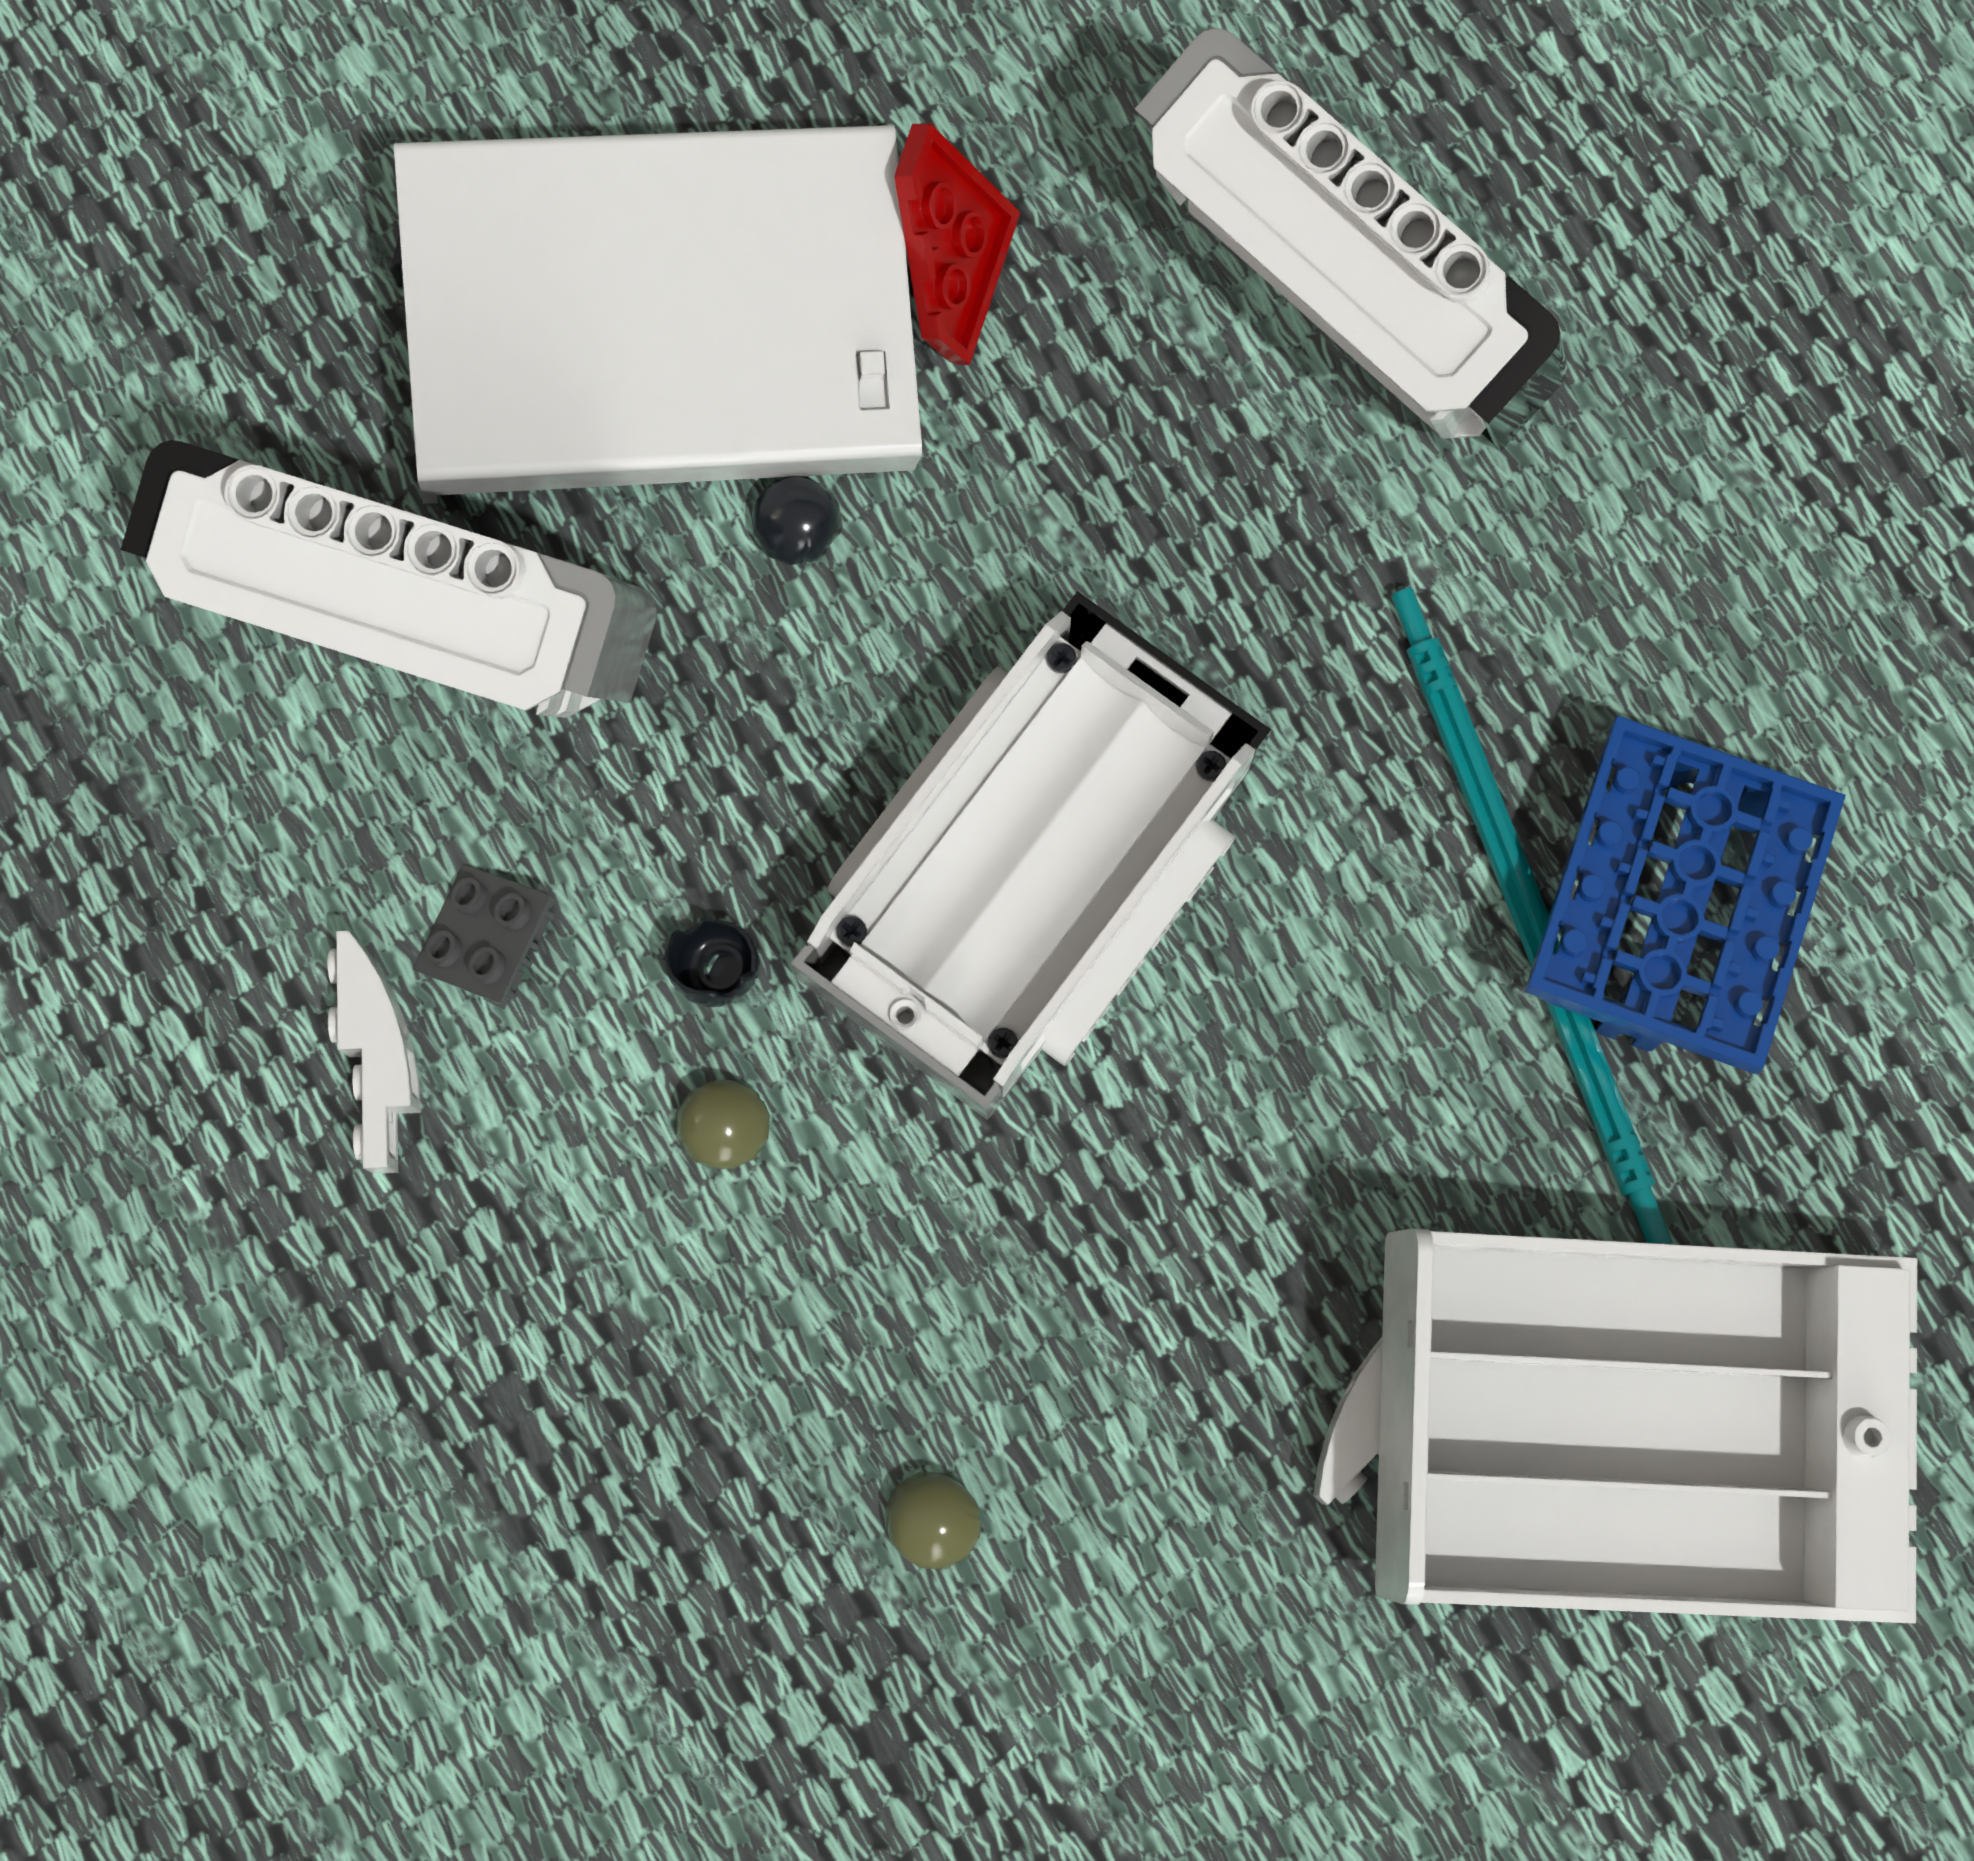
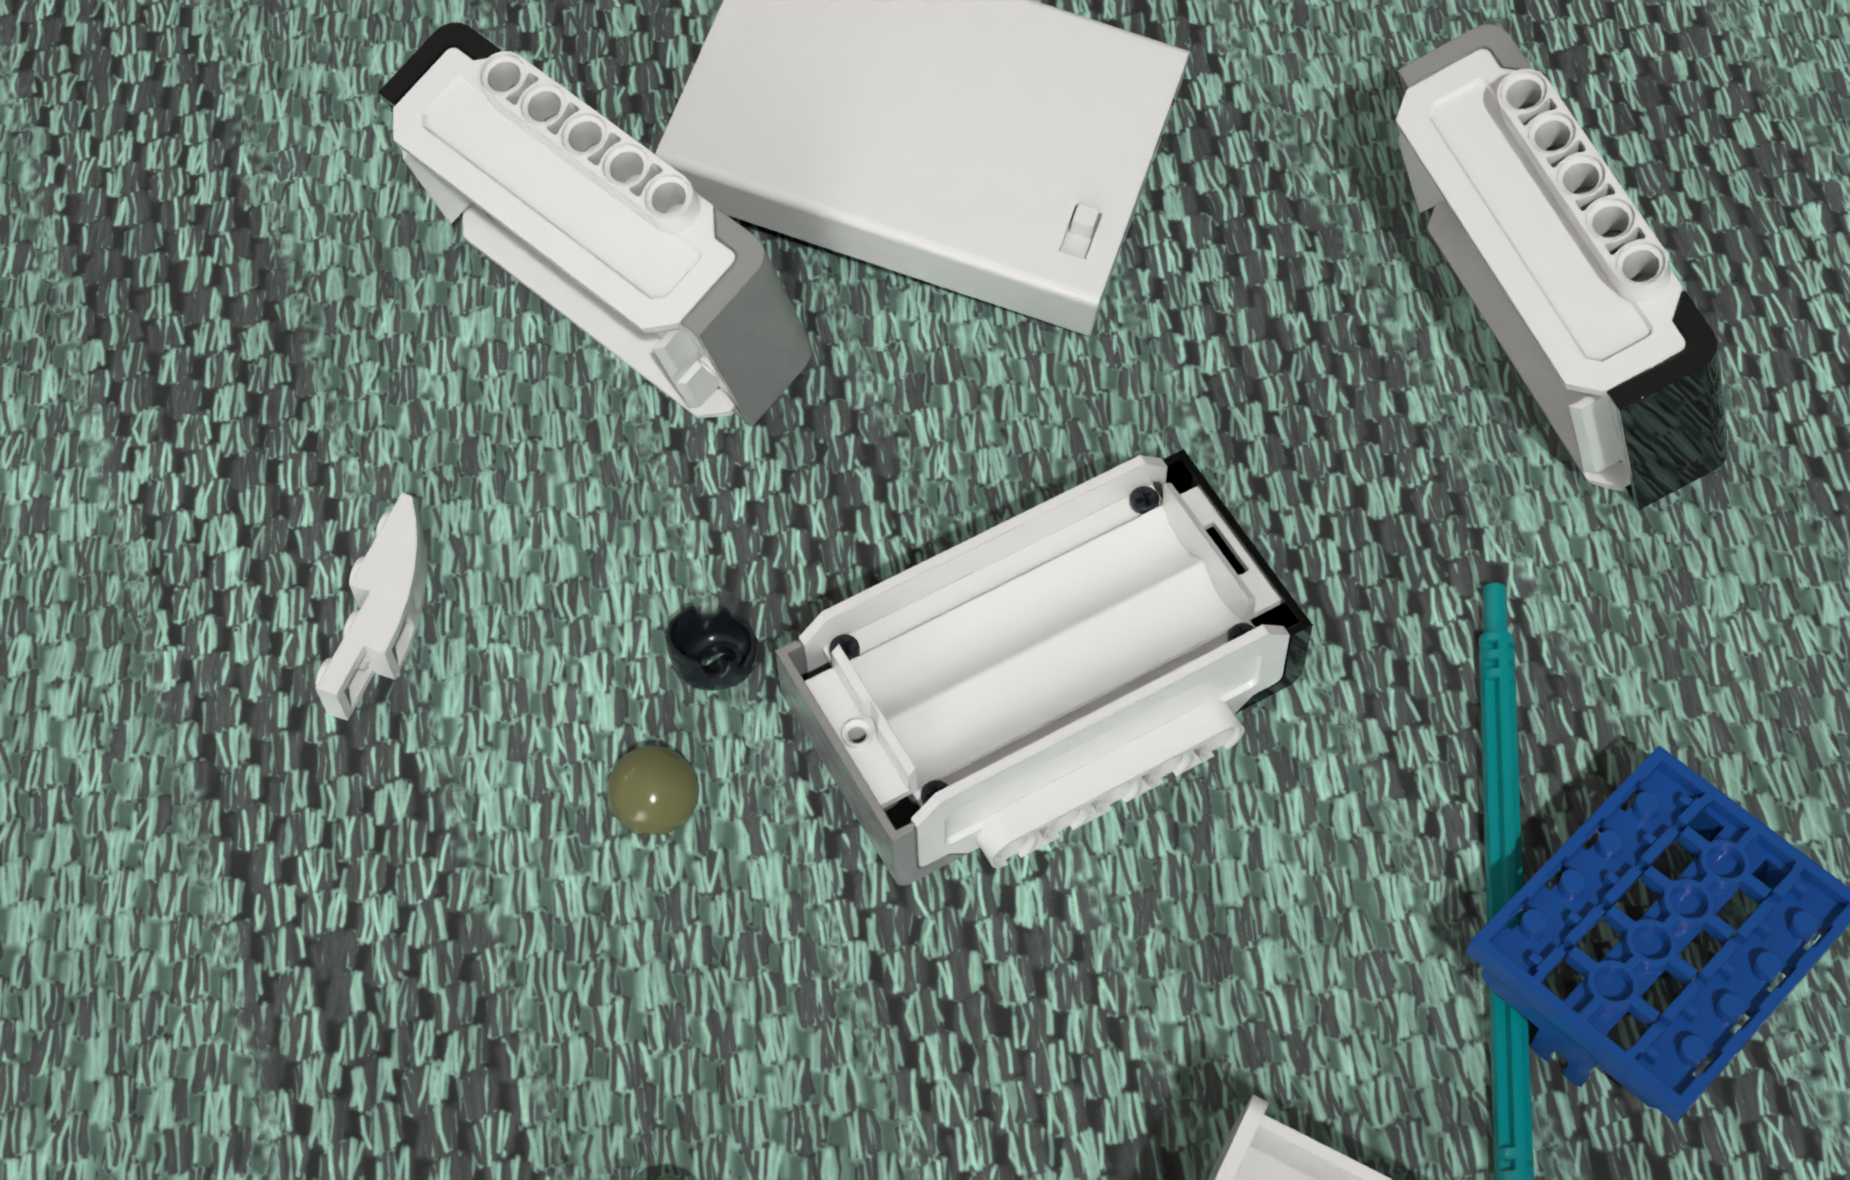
camera: 25 degrees right, 20 degrees down
(485, 935) = (528, 551): dark grey hinge -> none
(796, 520) = (967, 335): black hair -> none
(954, 240) = (1204, 164): red plate -> none

